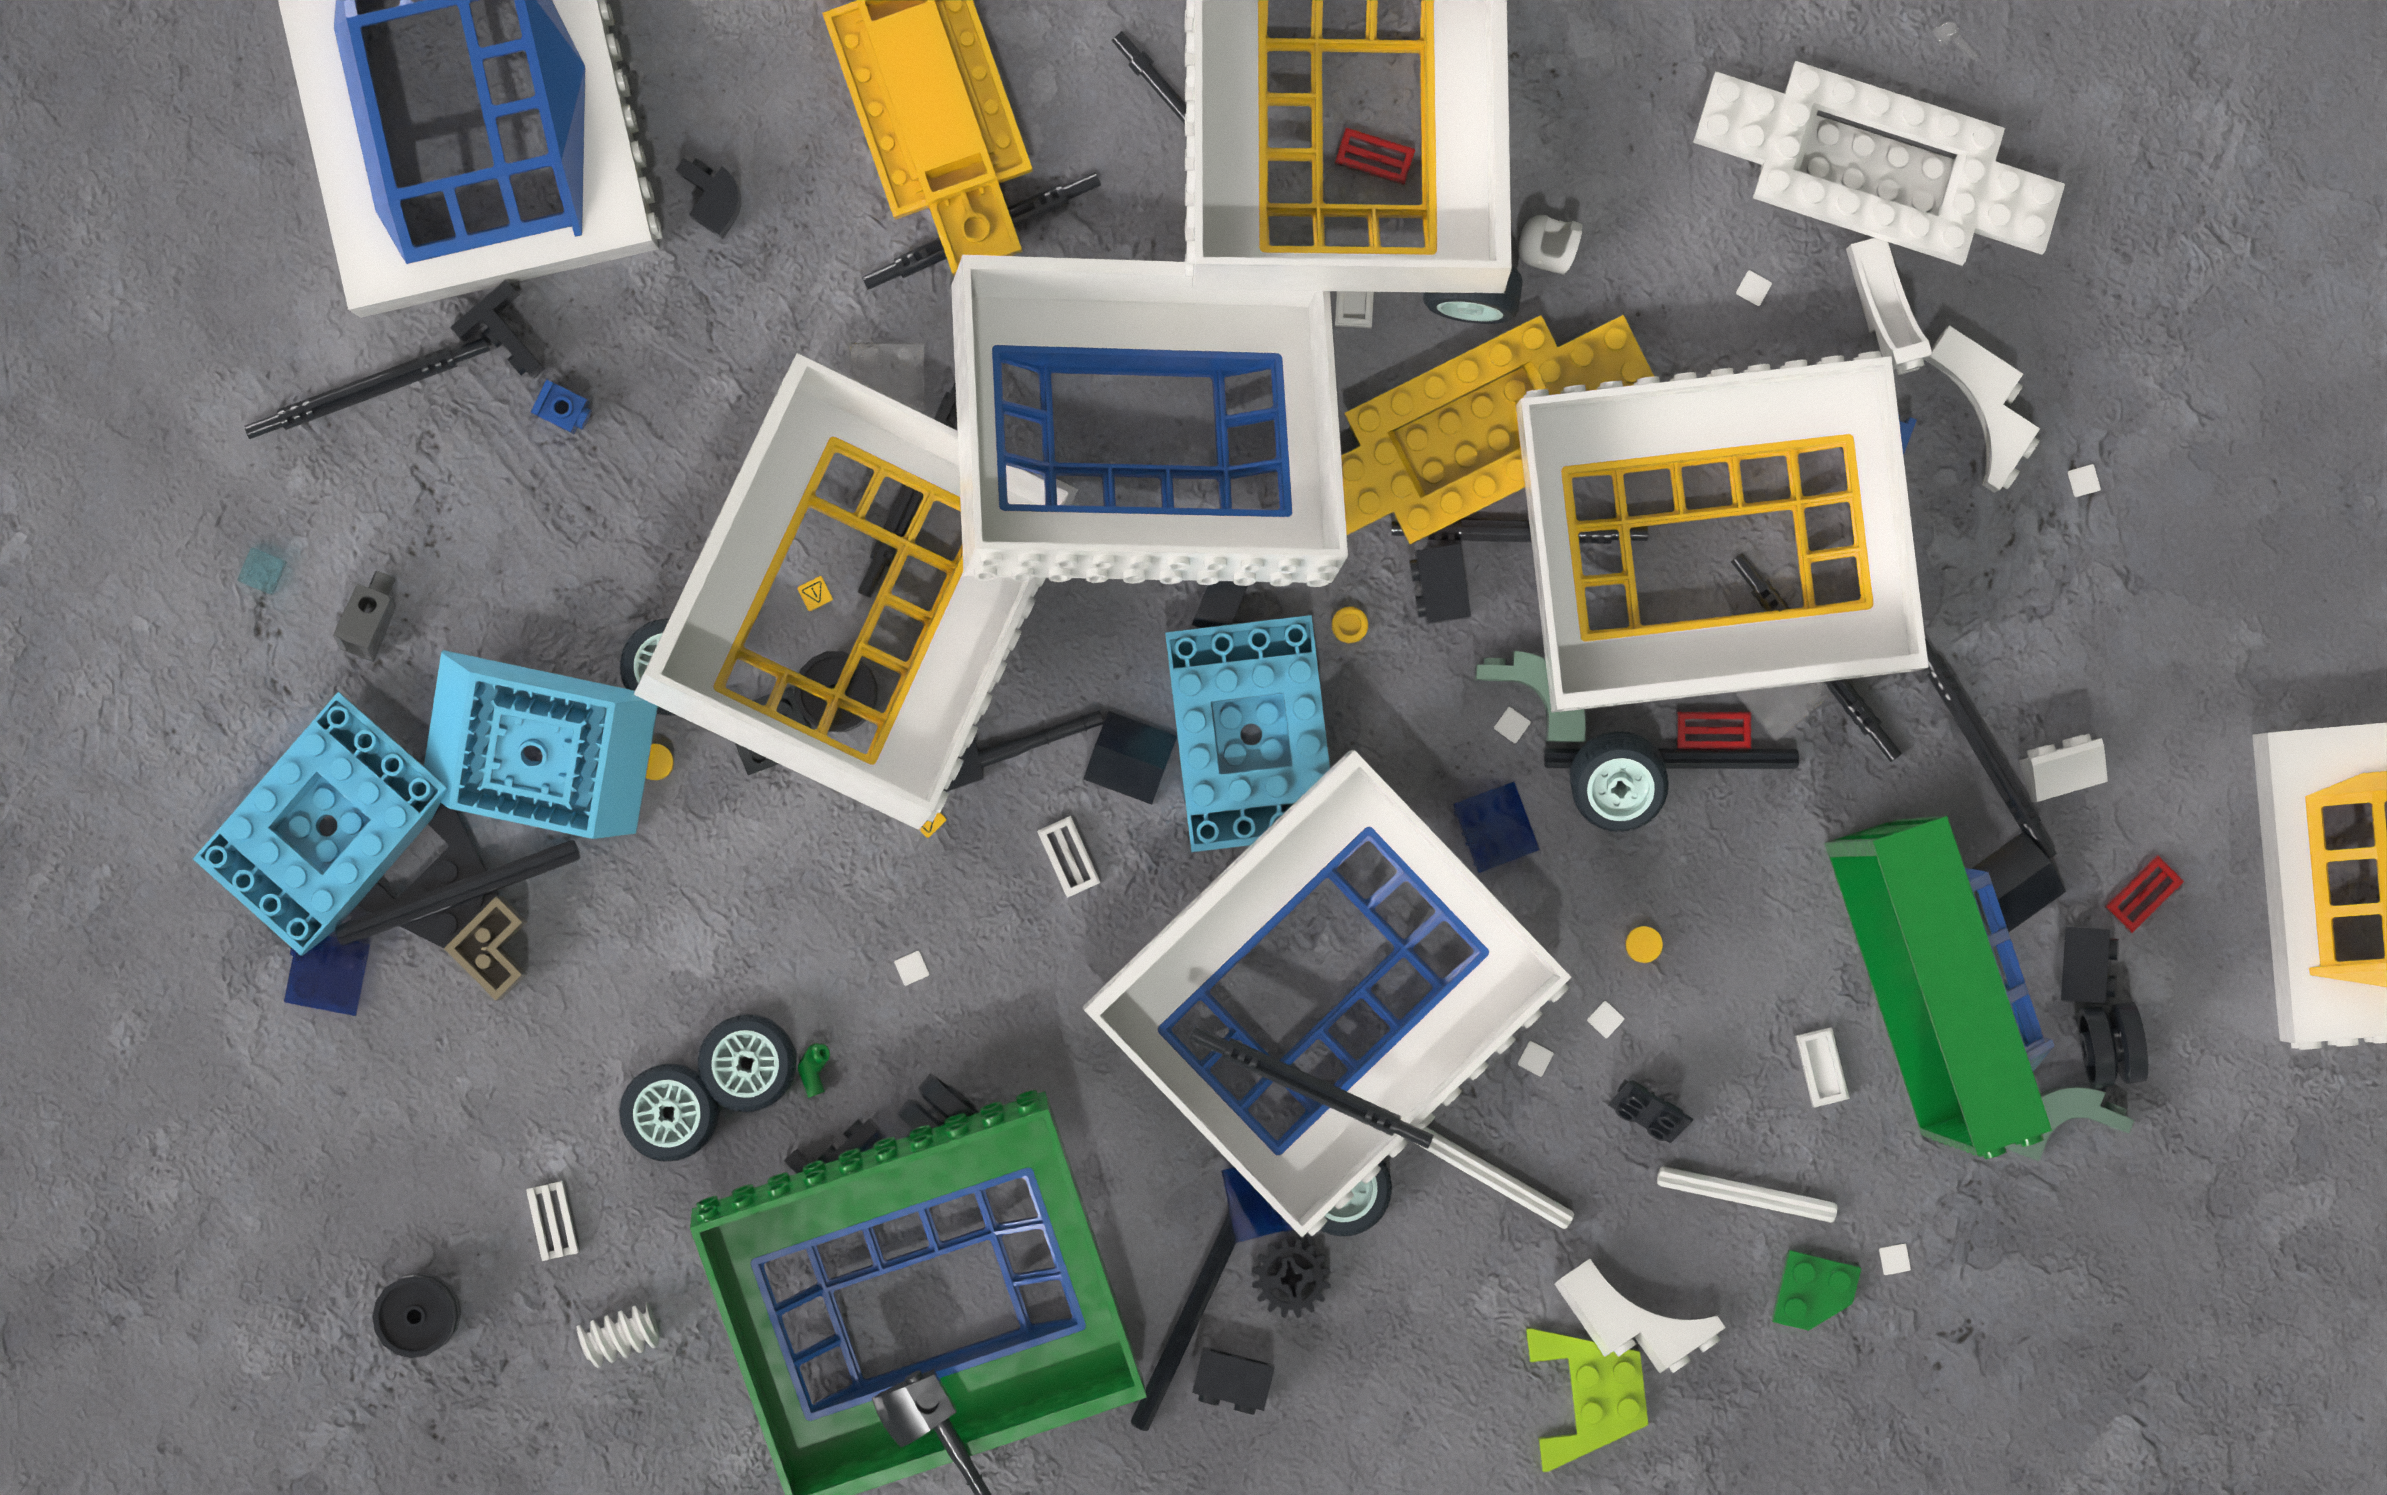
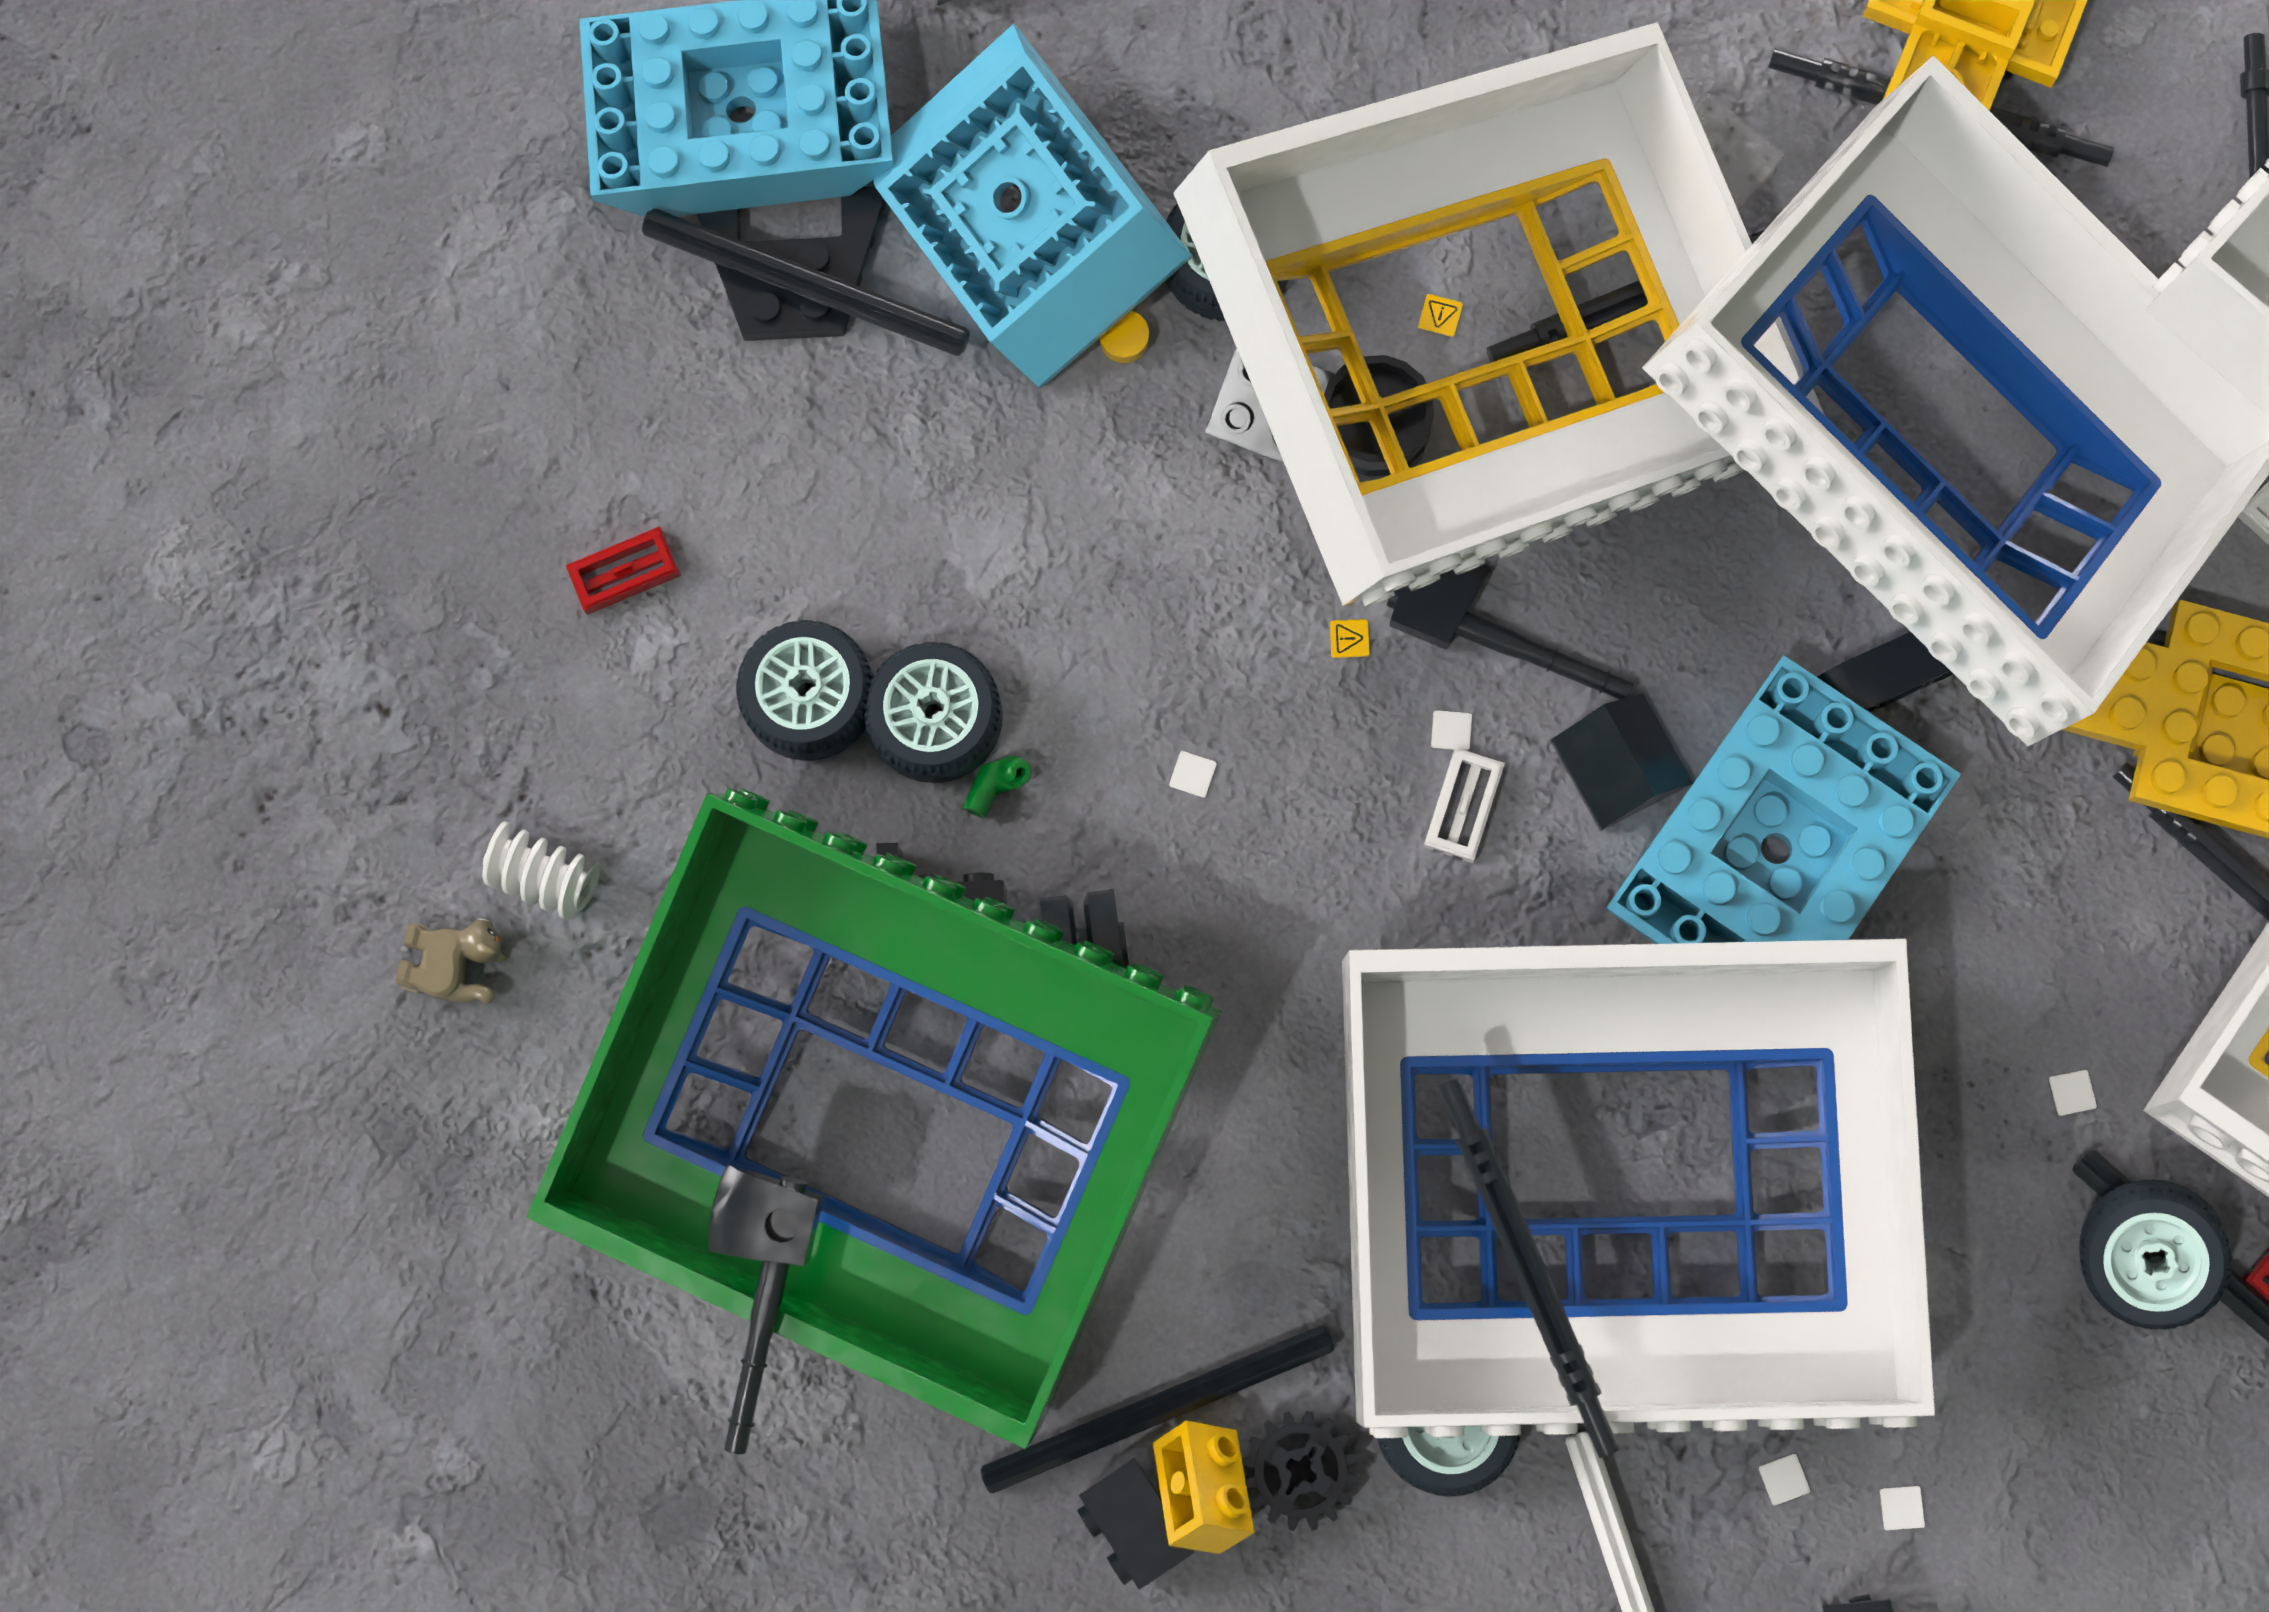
camera: 50 degrees right, 10 degrees down
(328, 976) = (602, 256): clear blue hinge -> none
(438, 1311) = (357, 661): black wheel -> none
(481, 951) = (778, 355): dark tan brick -> none
(519, 1107) = (631, 587): none -> red tile
(558, 1250) = (571, 686): white tile -> none
(614, 1426) = (445, 961): none -> dark tan animal
(1026, 821) = (1451, 730): none -> white sticker
(1249, 1210) = (1324, 1352): clear blue hinge -> none
(1250, 1332) = (1203, 1487): none -> yellow brick
(1349, 625) = (1984, 830): yellow tile -> none
(1441, 584) = (2130, 870): black brick -> none
(1496, 827) = (1965, 1182): clear blue hinge -> none
(1532, 672) = (2149, 1052): sand green arch -> none
(1643, 944) = (2019, 1463): yellow tile -> none

